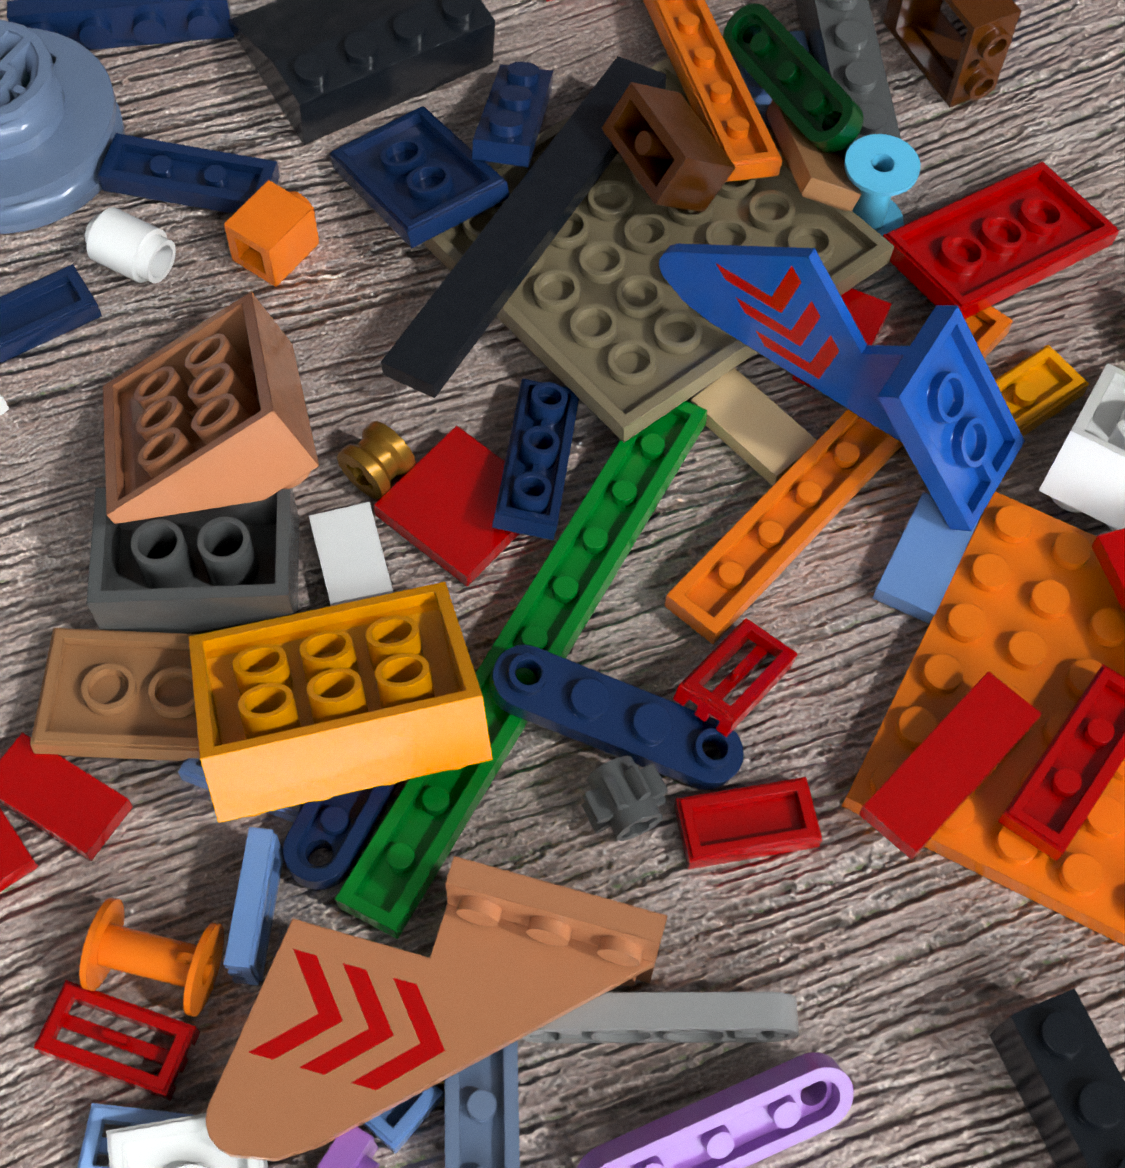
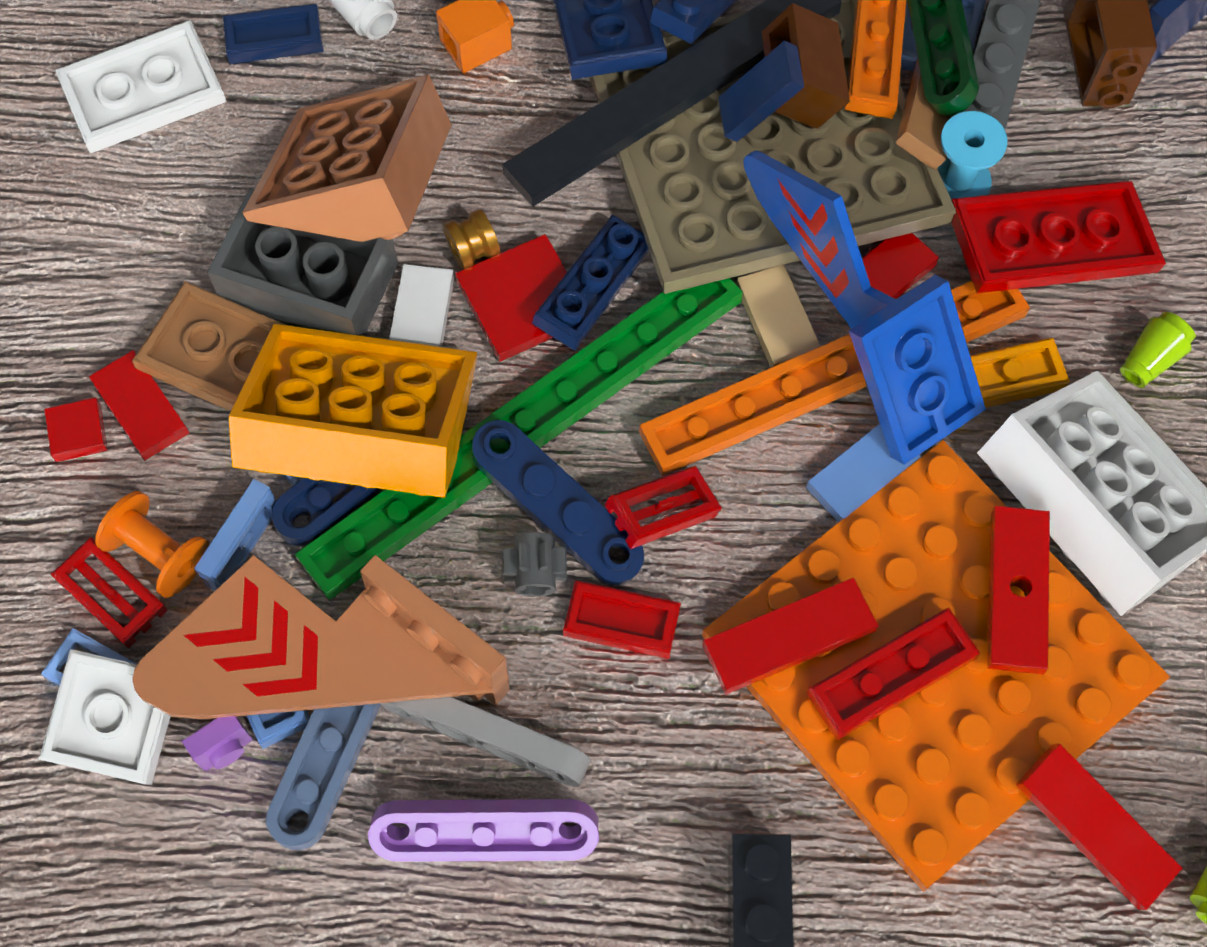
camera: 25 degrees right, 5 degrees up
(637, 187) = (761, 91): none -> dark blue tile

